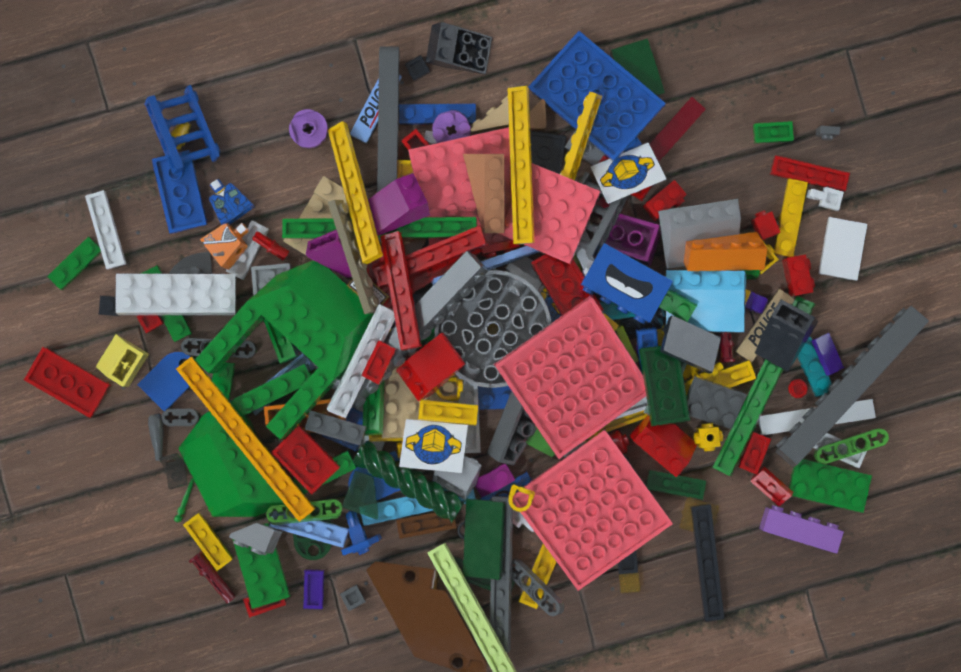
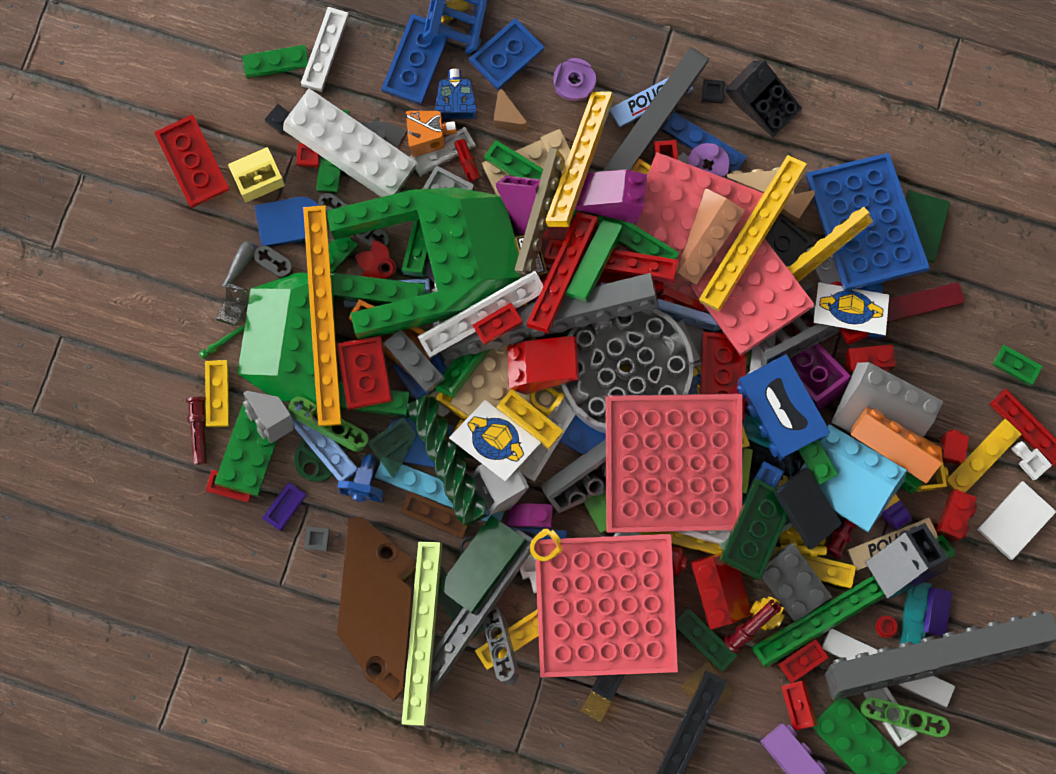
camera: 30 degrees right, 10 degrees down
(244, 142) = (506, 54): none -> blue plate
(254, 368) = (373, 261): none -> red plate
(276, 190) = (507, 115): none -> medium nougat slope
(418, 266) = (594, 260): none -> green tile
(702, 460) = (746, 631): none -> dark red pin

